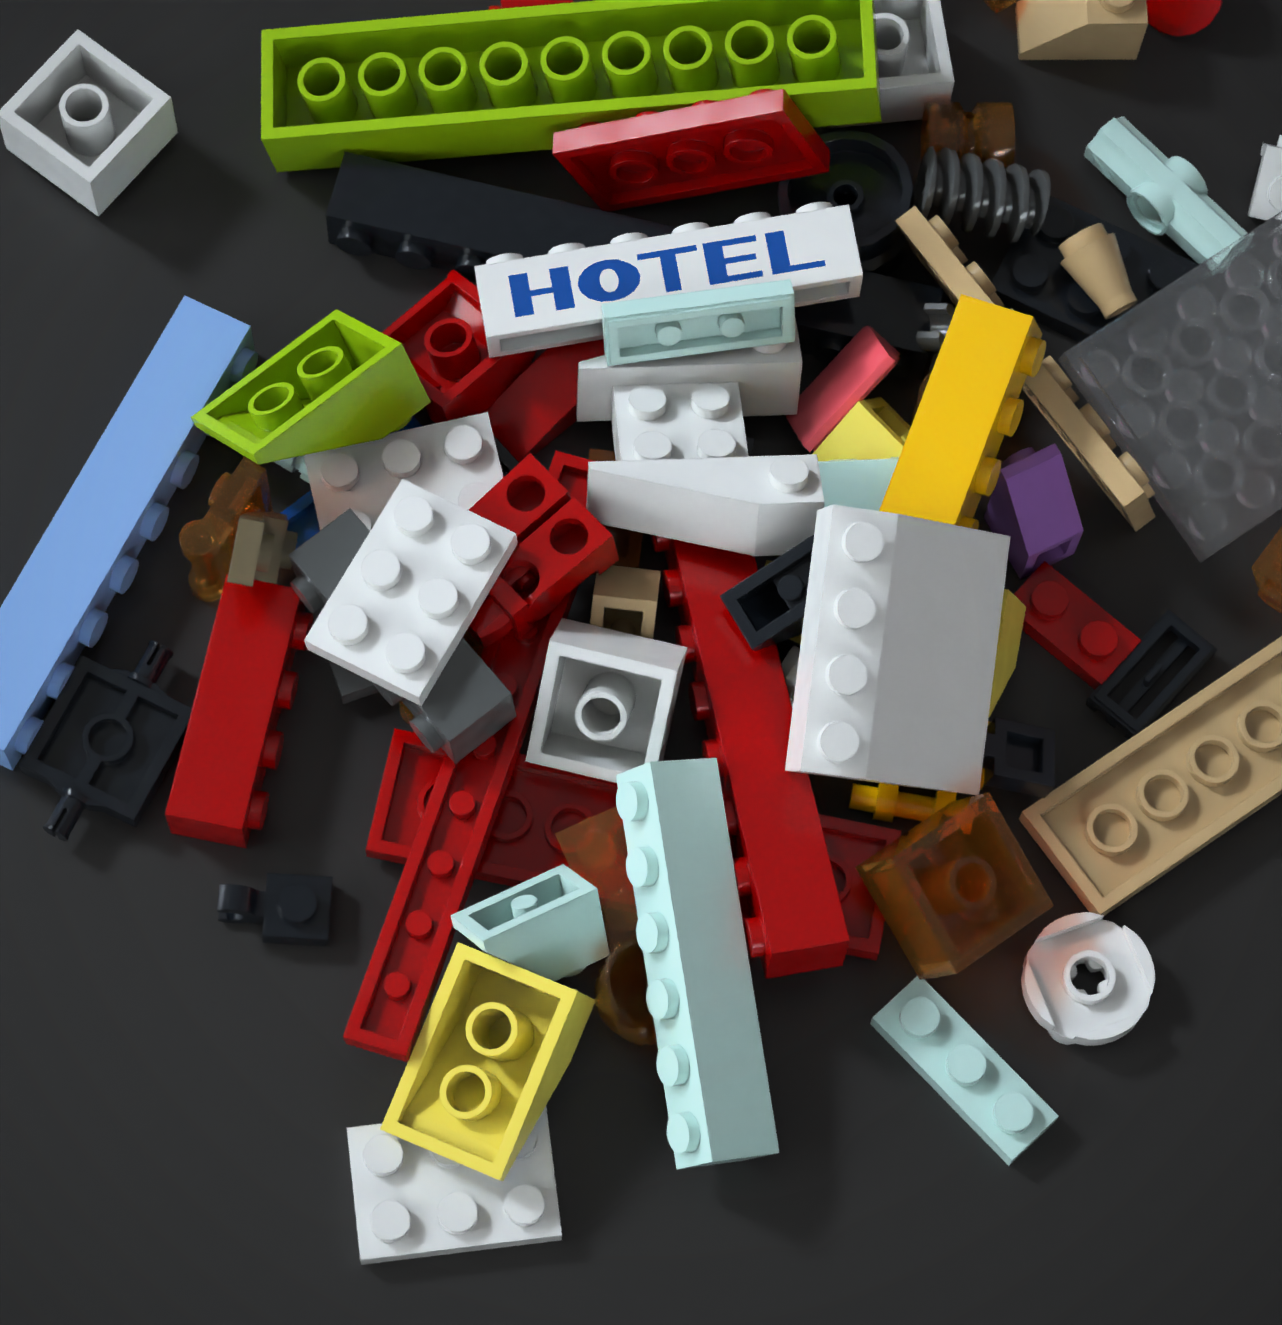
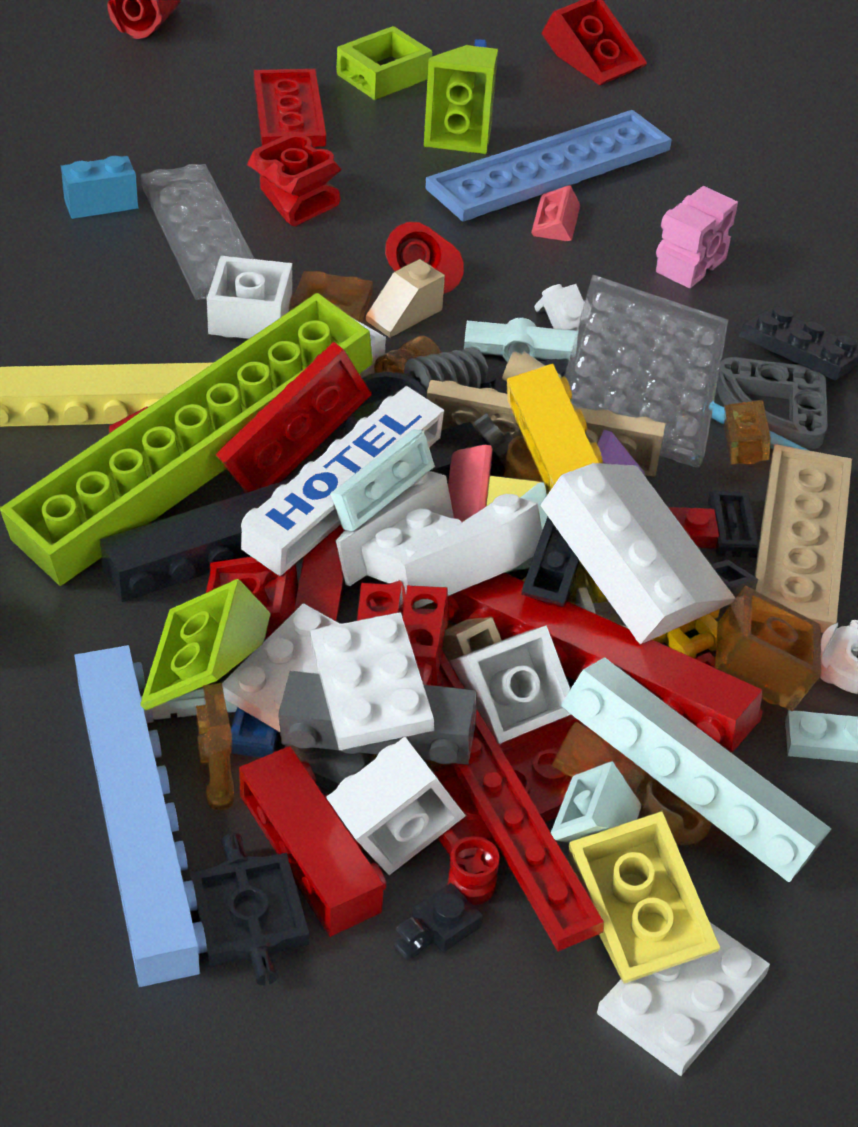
camera: 40 degrees left, 25 degrees down
(261, 548) = (250, 731): dark tan slope -> none
(327, 753) = (395, 806): none -> white brick
(359, 870) = (474, 868): none -> red wheel

